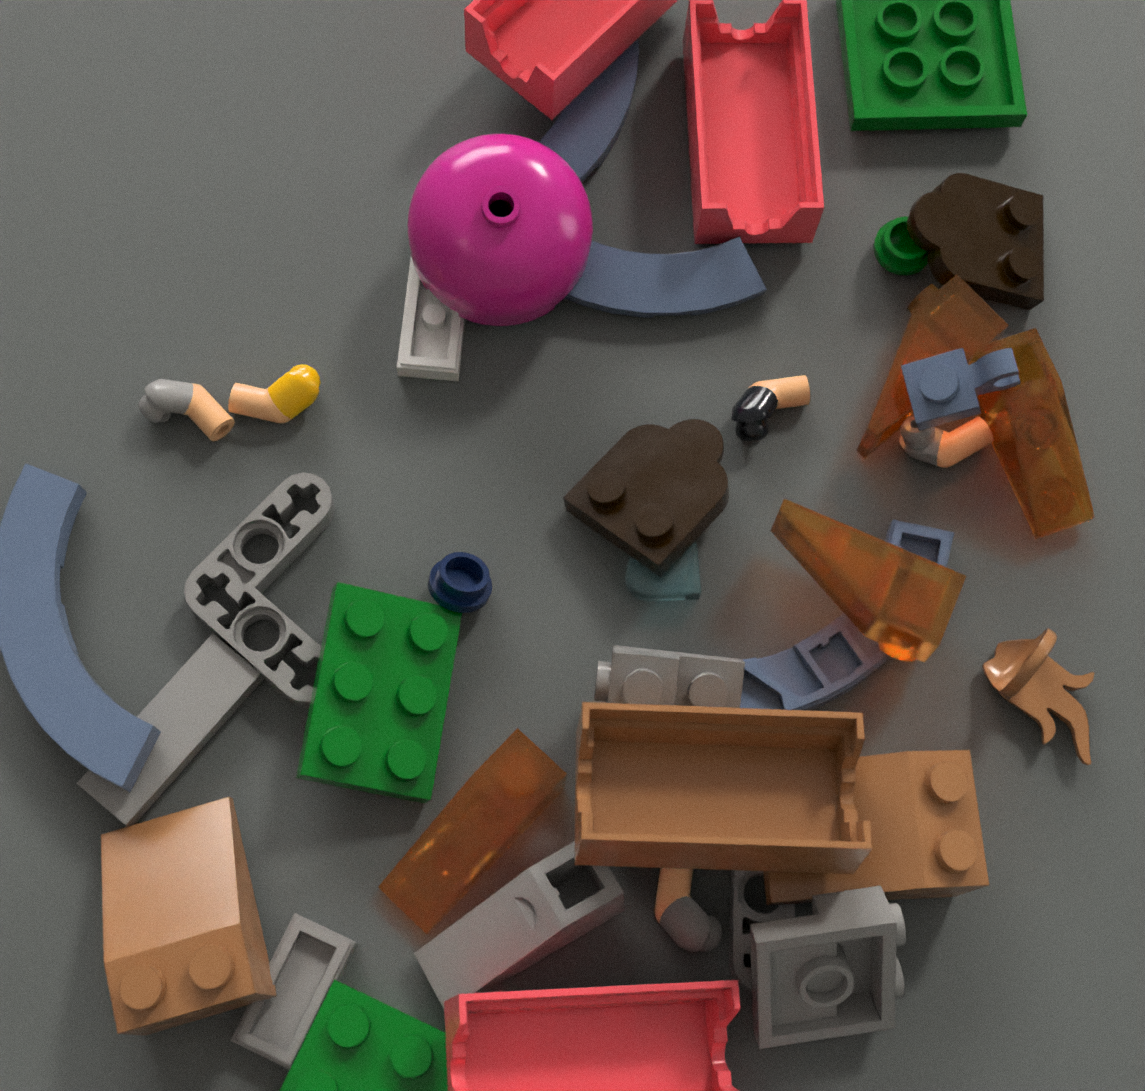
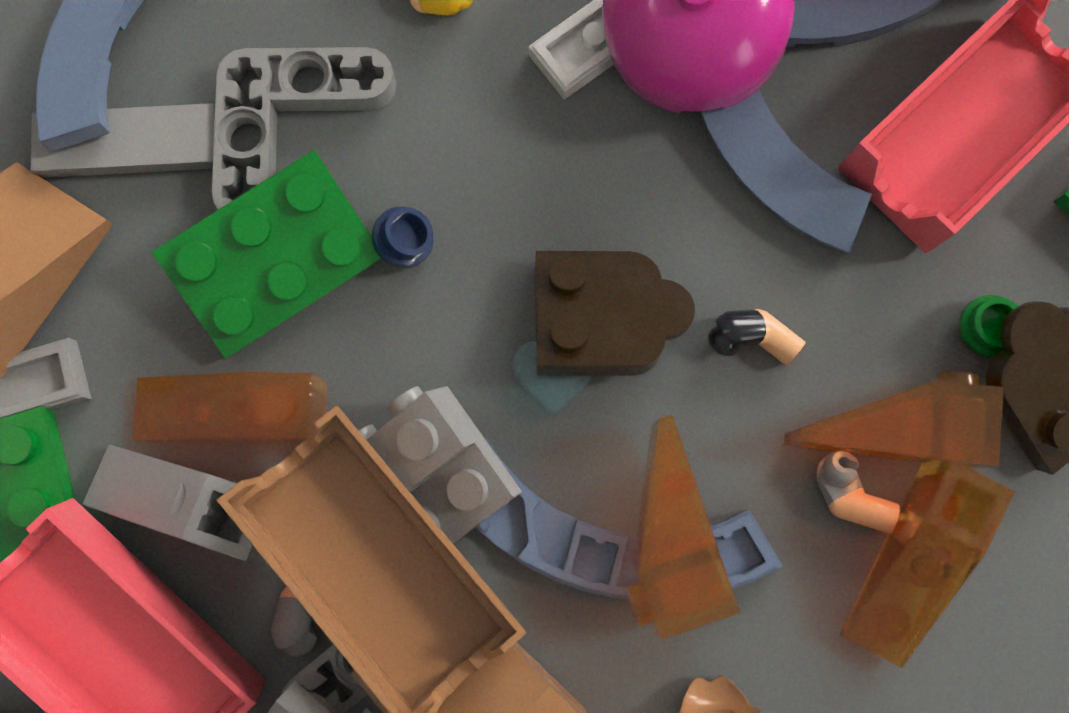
camera: 55 degrees right, 10 degrees up
(947, 387) = (893, 463): sand blue plate -> none

